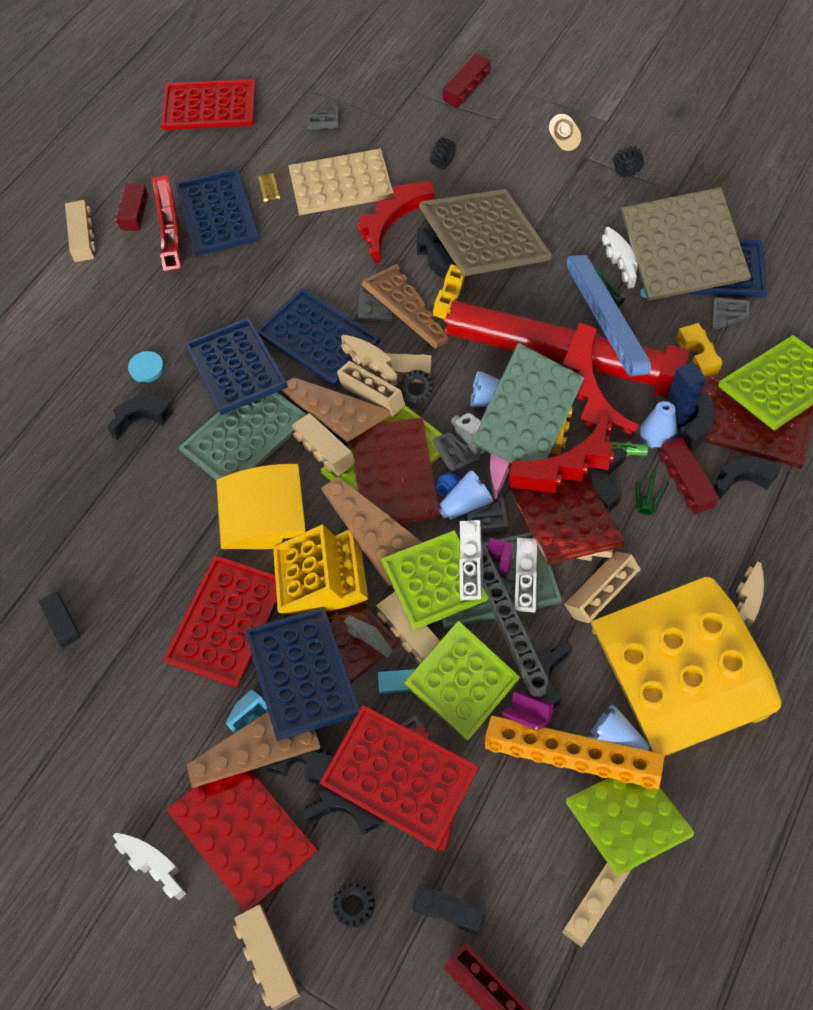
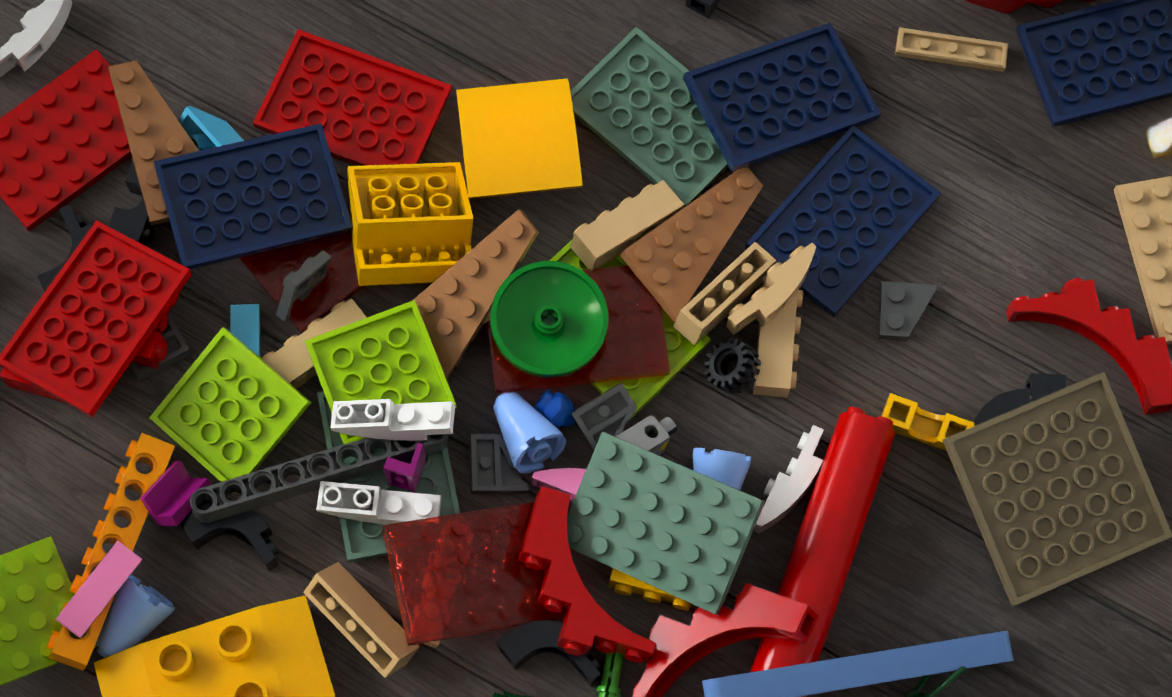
camera: 85 degrees right, 10 degrees up
(205, 287) = (951, 49): none -> tan tile
(395, 475) = (549, 319): none -> green dish
(403, 300) = (915, 347): medium nougat wing -> none
(482, 353) = (788, 490): none -> white slope
(610, 746) = (99, 589): none -> bright pink slope

